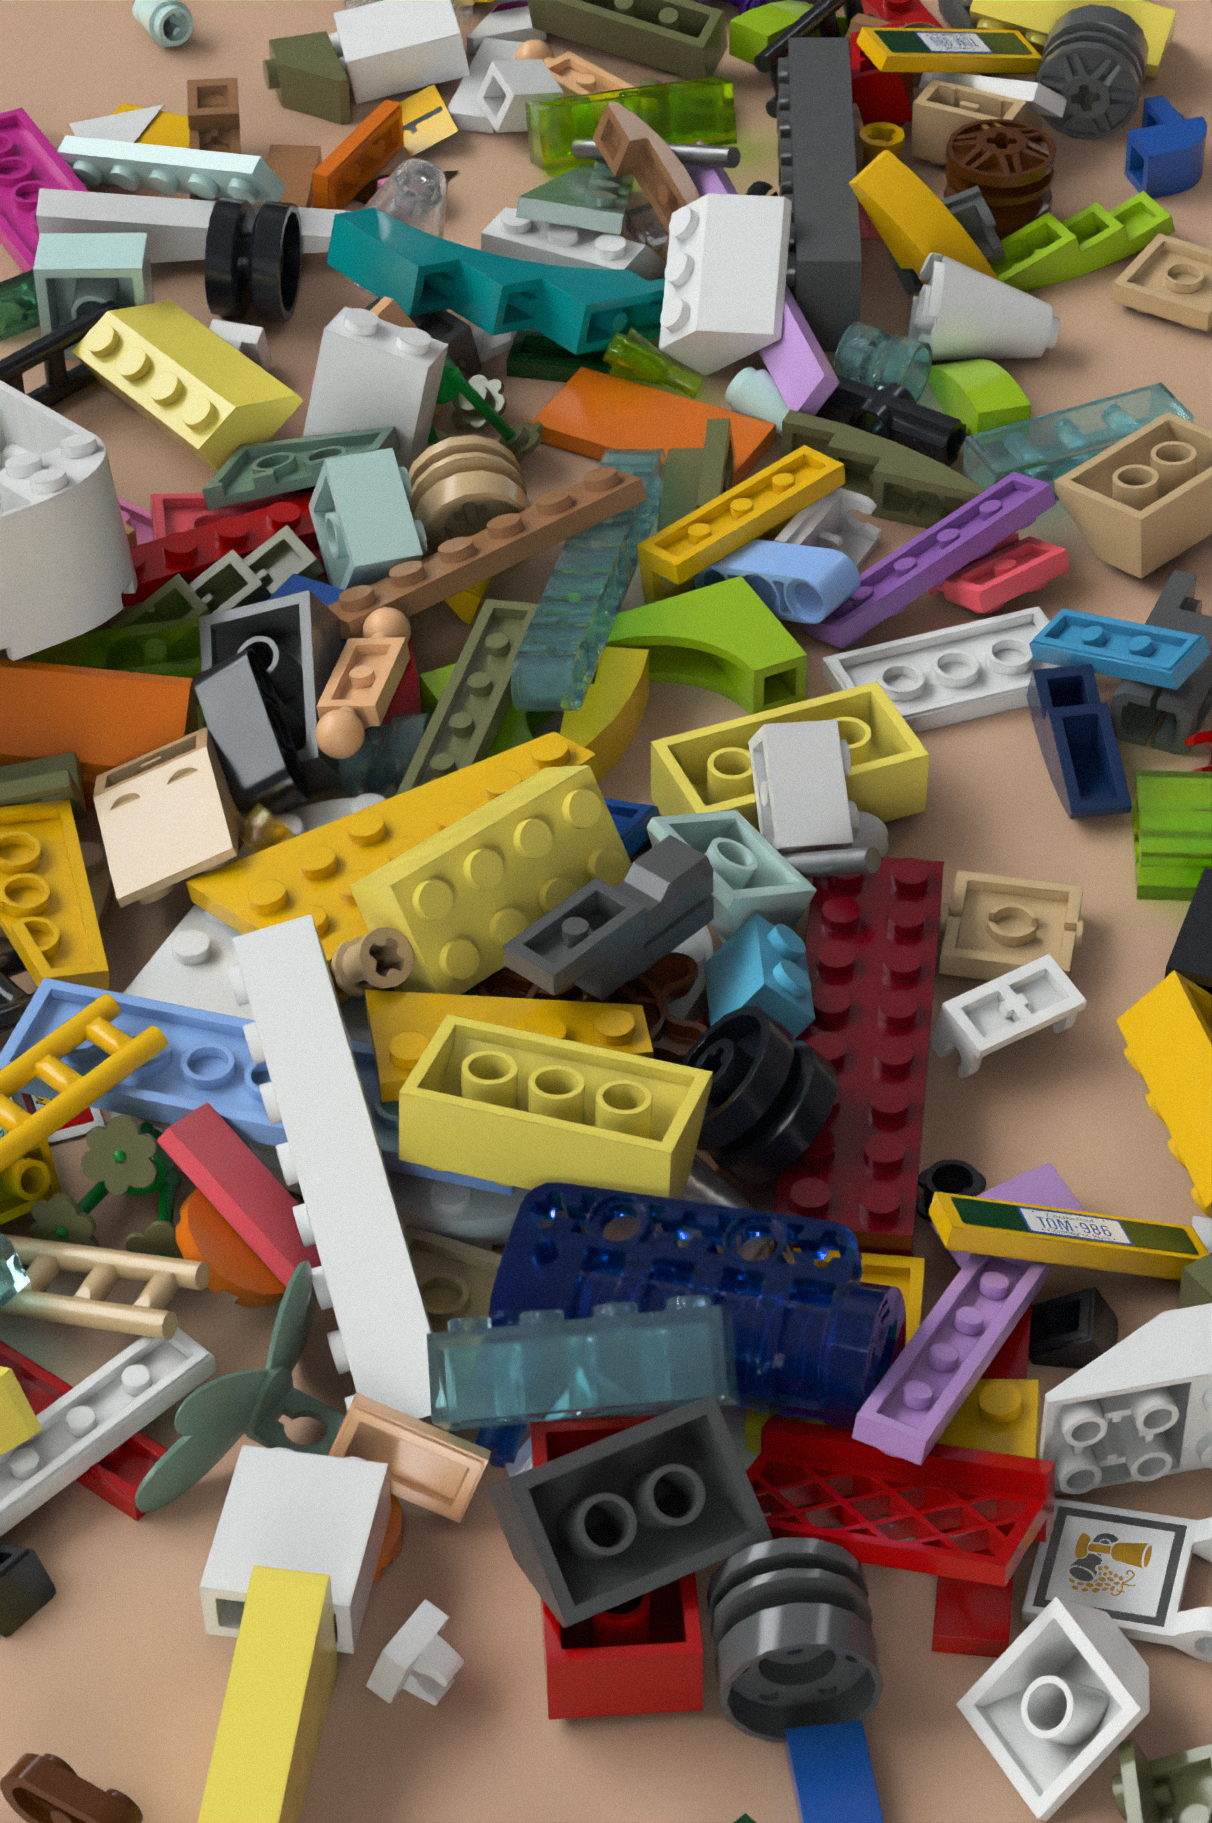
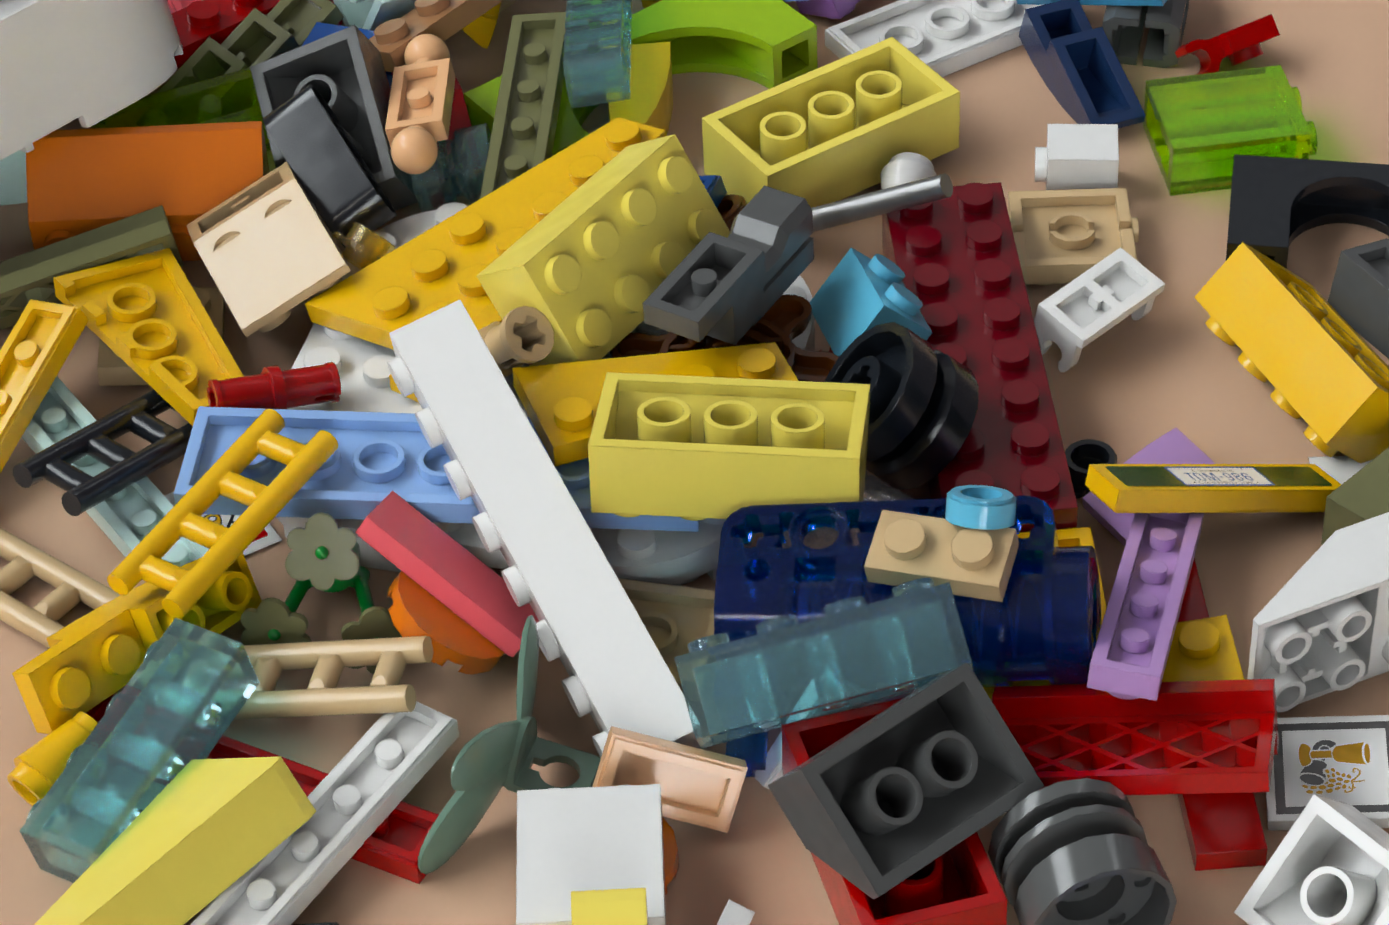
camera: 10 degrees left, 0 degrees up
(131, 970) = (277, 388): none -> red pin
(733, 1269) = (931, 547): none -> tan plate
(745, 866) = (838, 216): light aqua slope -> none
(779, 1228) = (980, 507): none -> medium azure tile
(803, 786) = (857, 134): white brick -> none
(1043, 844) = (1079, 157): none -> white brick
(1072, 1330) = (1236, 572): black slope -> none

